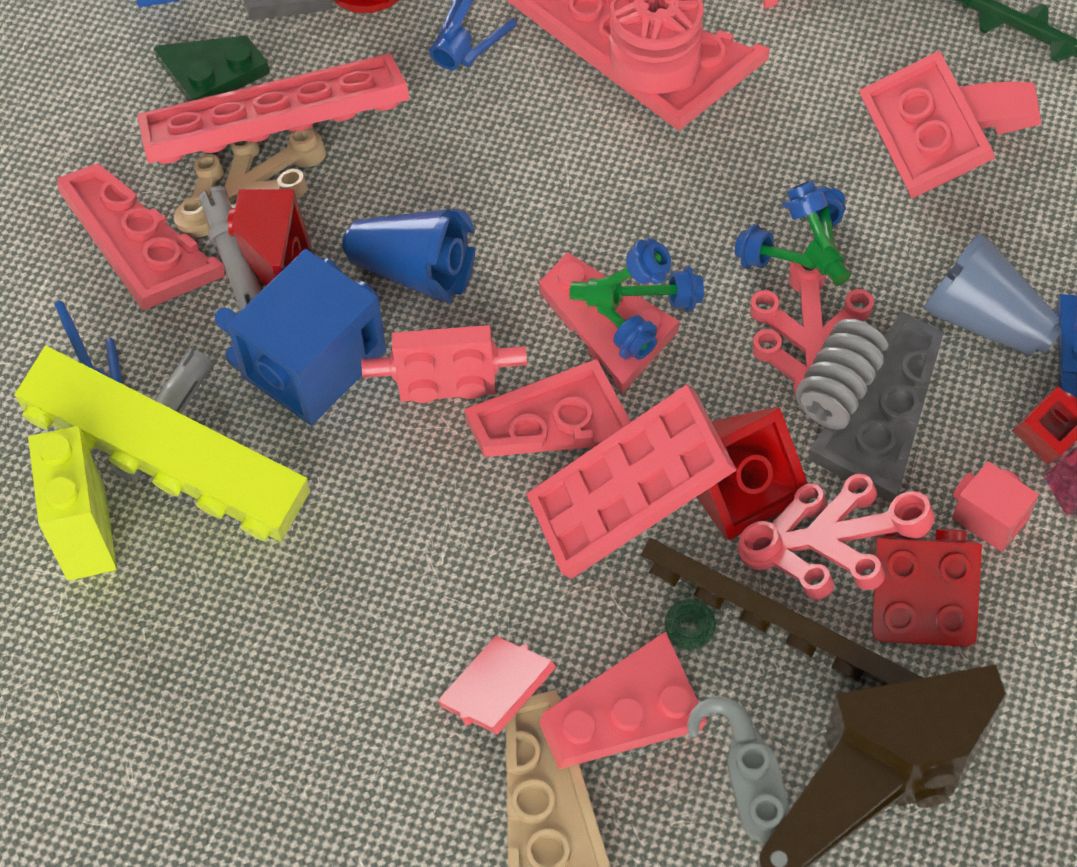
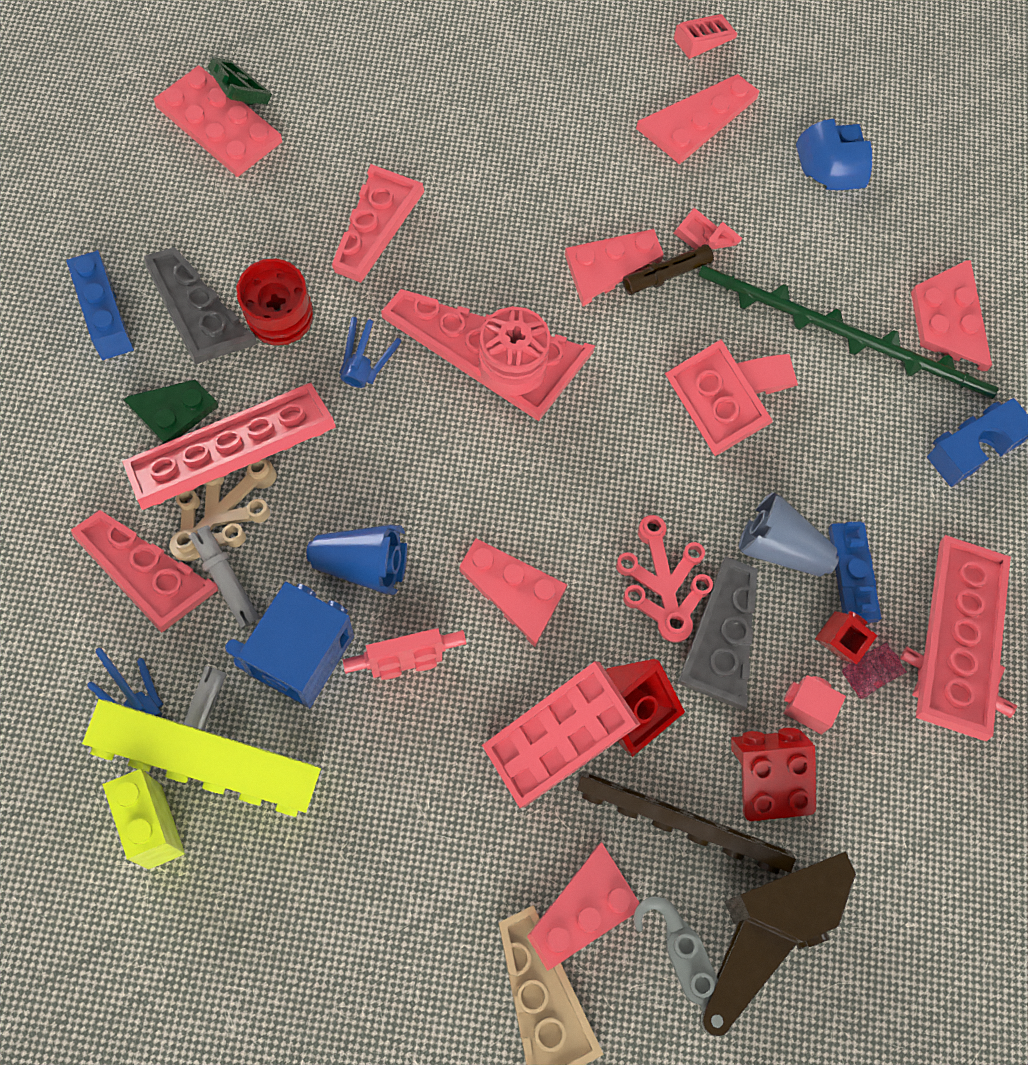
camera: 20 degrees left, 10 degrees up
(268, 230) = (252, 565): red slope -> none
(496, 684) = (489, 907): piece -> none
(550, 415) = (489, 677): coral wing -> none
(646, 263) = (544, 560): blue plant -> none
(690, 611) = (627, 826): clear green plate -> none
(823, 210) = (650, 487): plant -> none
(828, 533) = (703, 749): coral plant -> none
(841, 373) = (693, 620): light grey piece -> none

